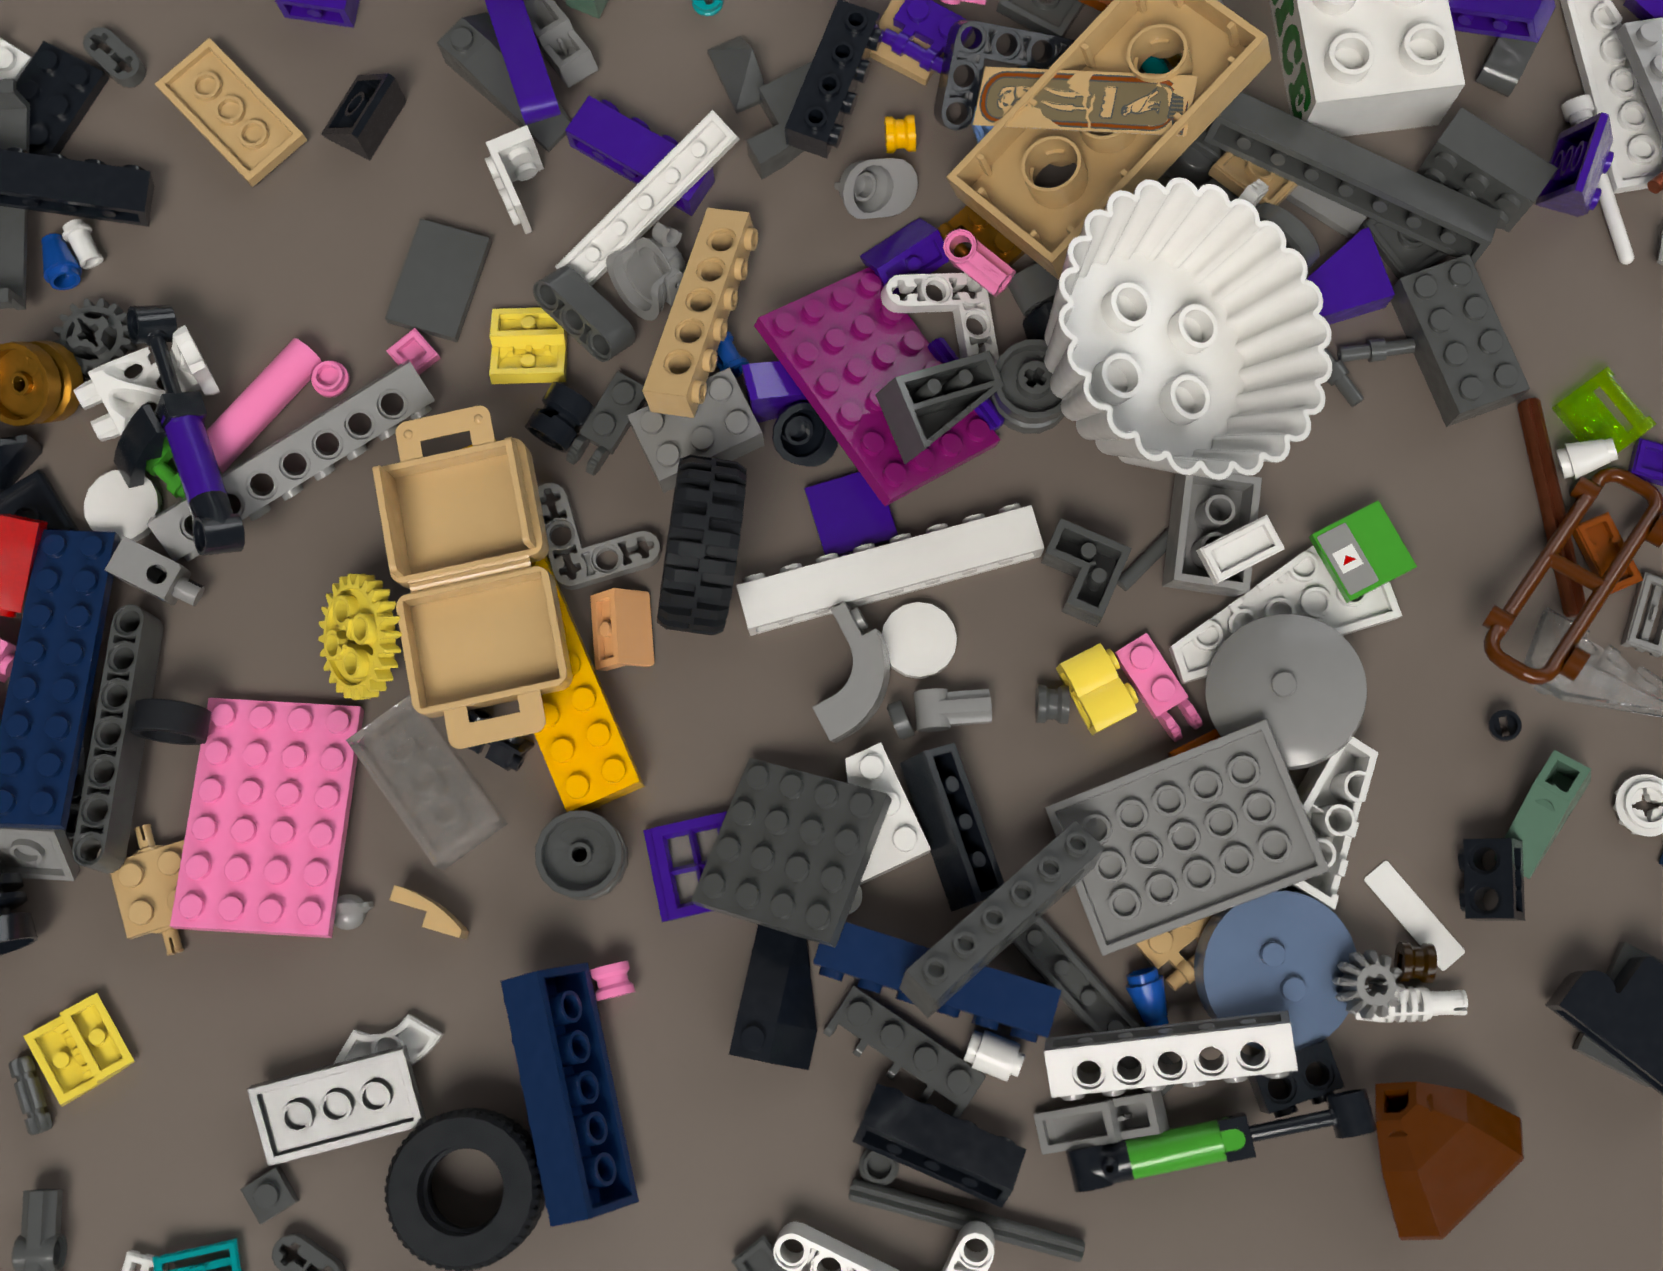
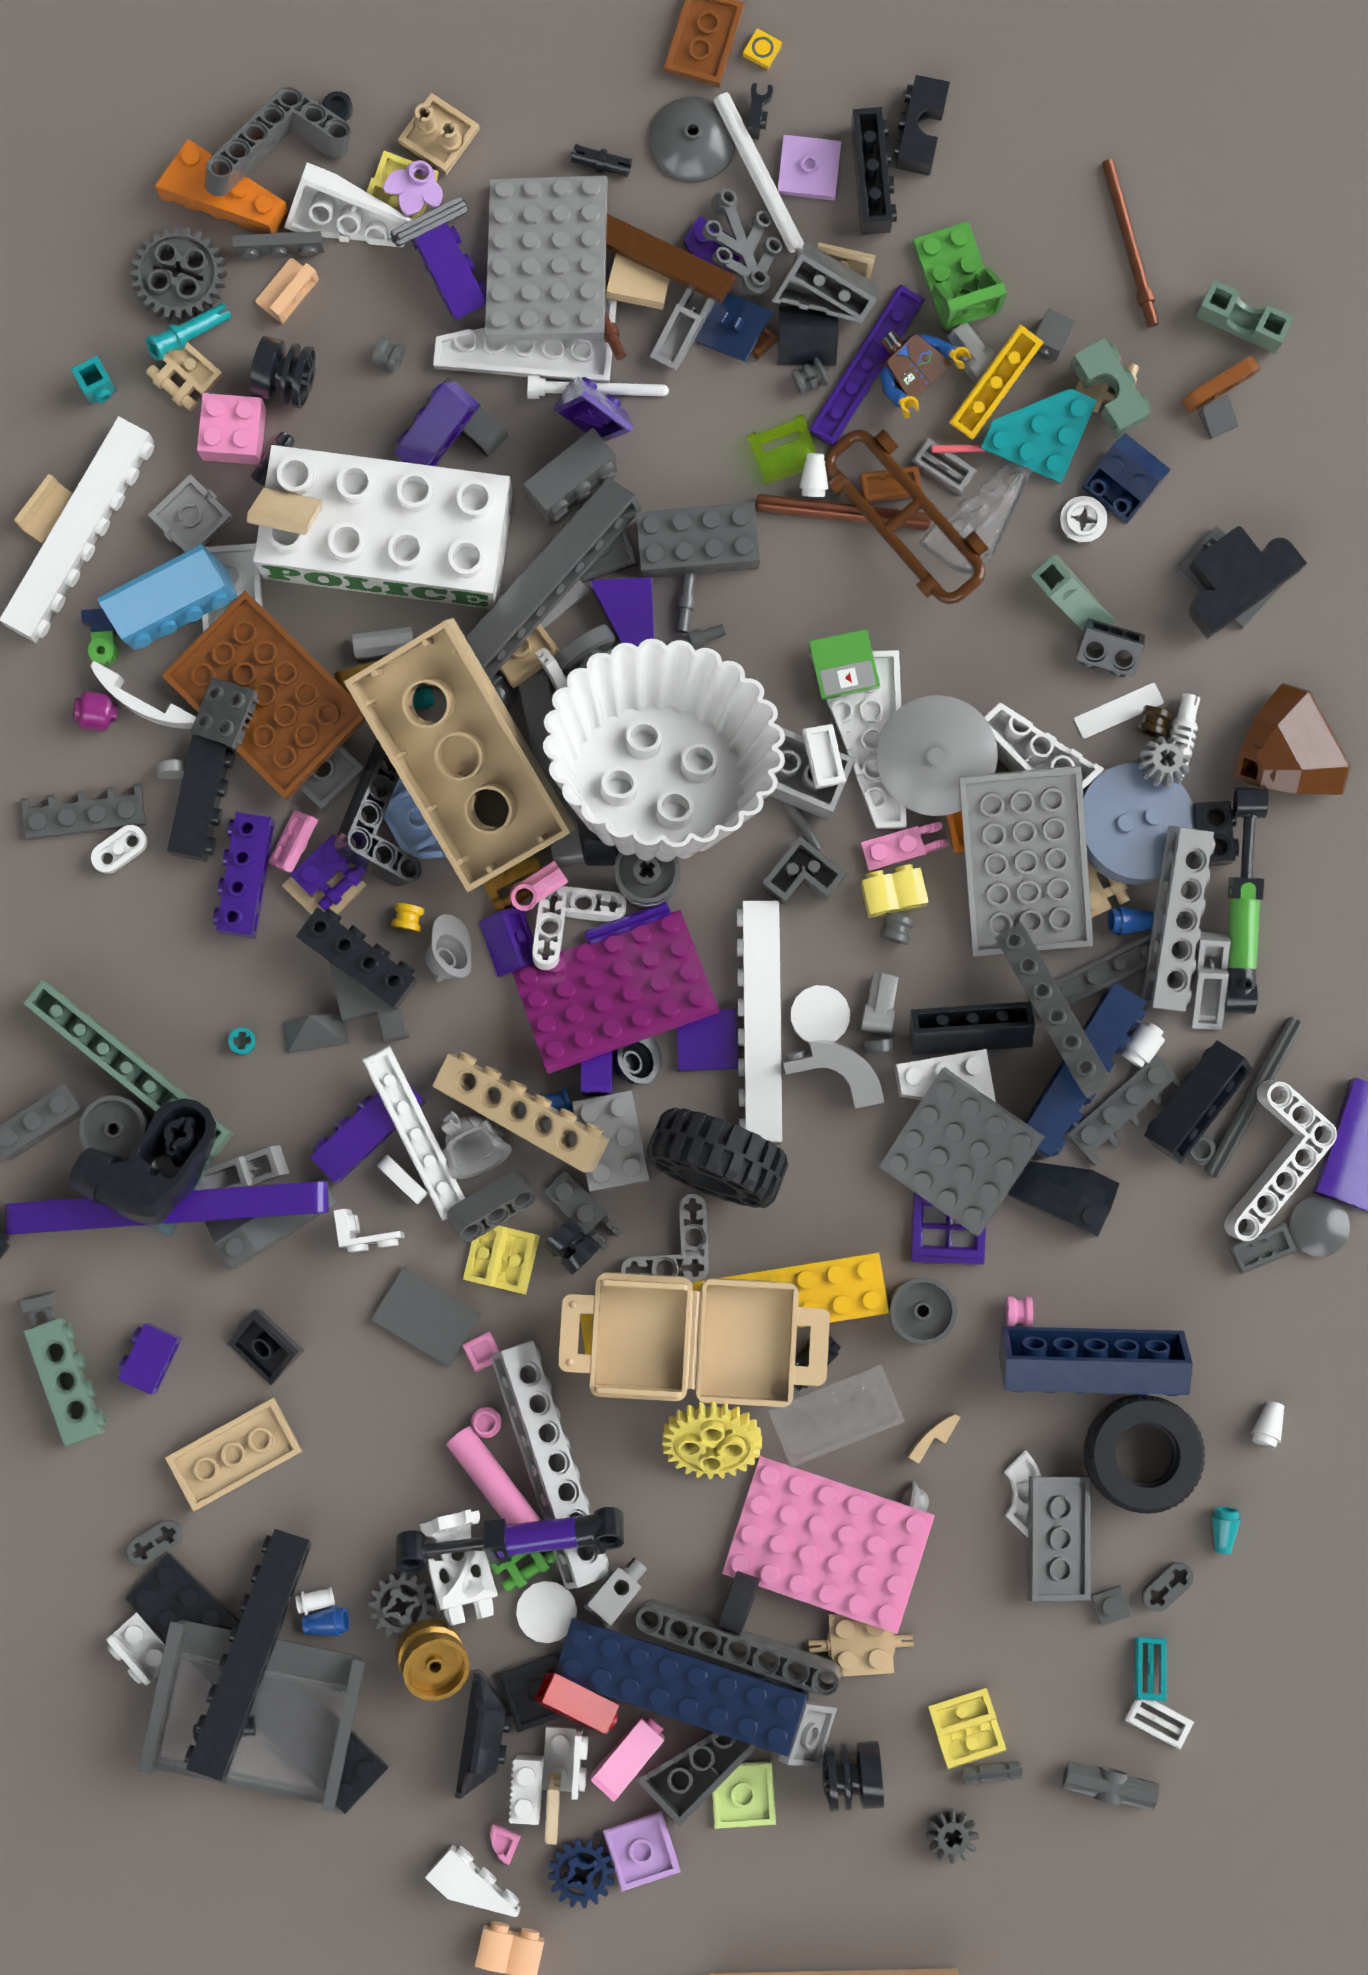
camera: 80 degrees left, 5 degrees up
(138, 443) = (509, 1582): black slope -> none
(592, 207) = (402, 1179): none -> white beam
(622, 629) = (752, 1240): light nougat panel -> none
(935, 399) = (650, 950): dark grey wedge -> none
(1085, 101) = (443, 769): sticker -> none
(1513, 723) = (998, 608): black hinge -> none

